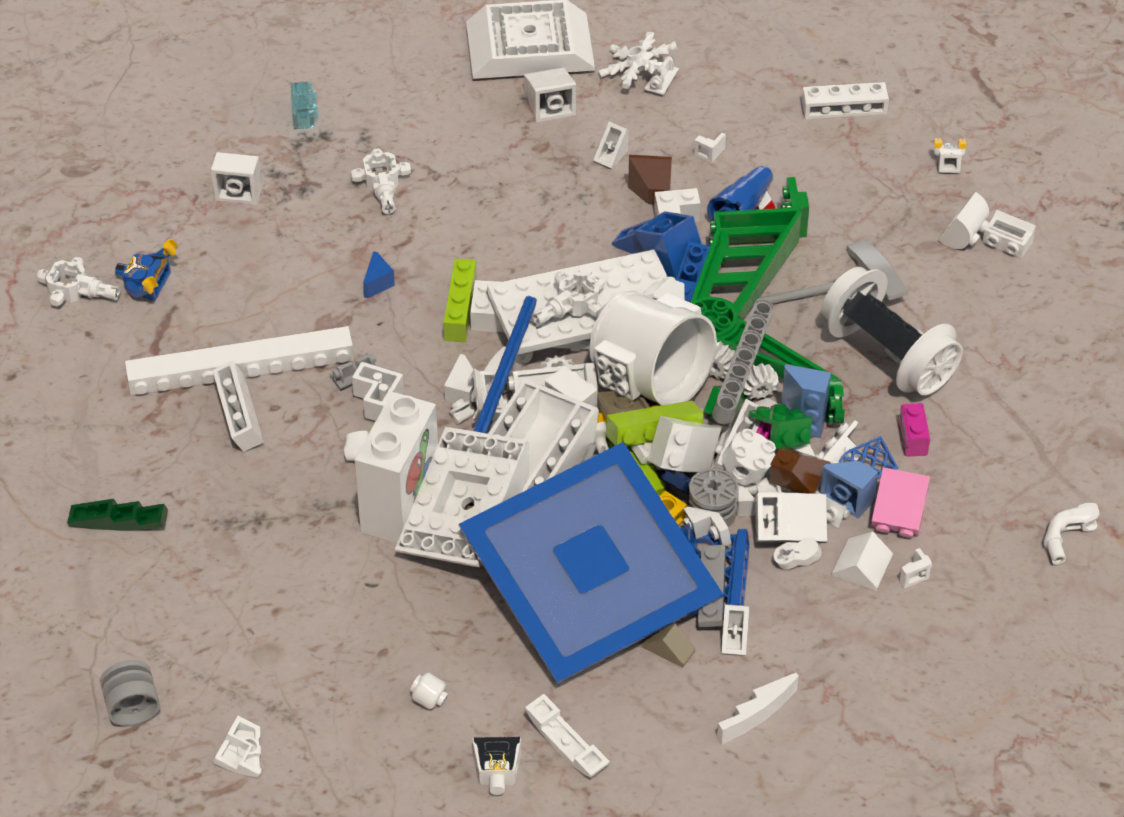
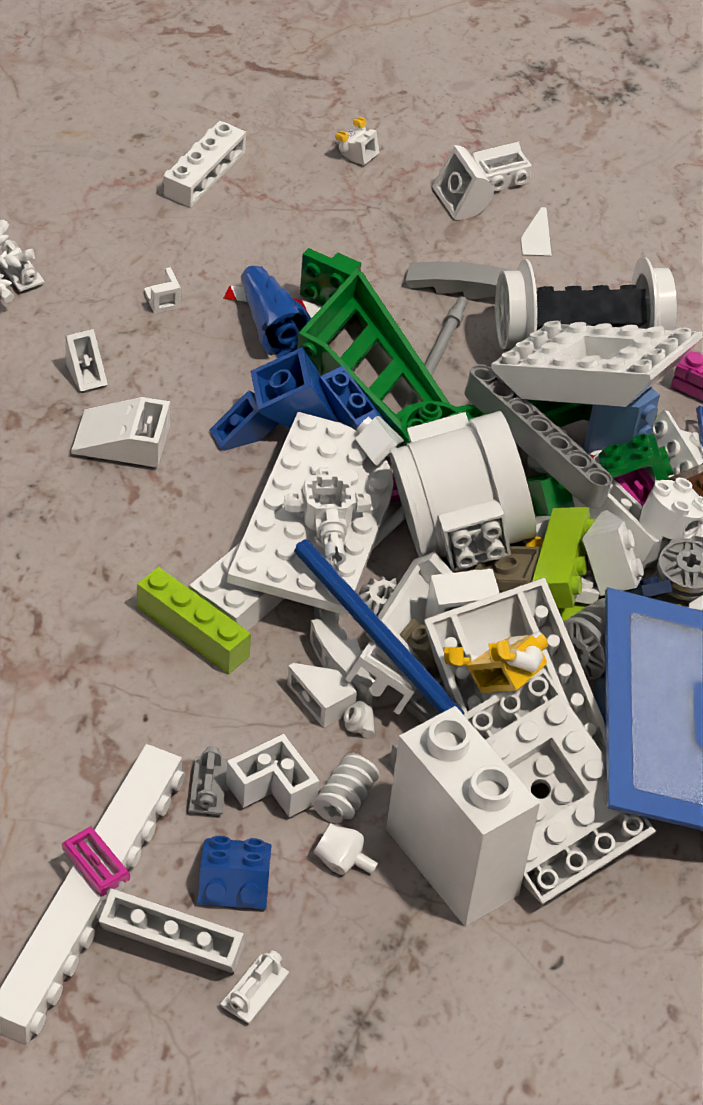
camera: 60 degrees left, 0 degrees up
(245, 462) = (256, 987): none -> white hinge
(257, 351) = (110, 881): none -> dark pink tile
(301, 408) = (234, 872): none -> blue bracket
(378, 276) = (75, 671): blue slope -> none
(514, 425) = (505, 664): none -> torso
(575, 195) = (125, 431): none -> white slope
(649, 175) = (175, 358): reddish brown slope -> none
(678, 201) = (230, 367): white brick -> none
(813, 344) = (592, 362): none -> white slope
(967, 289) = (536, 237): none -> white sticker

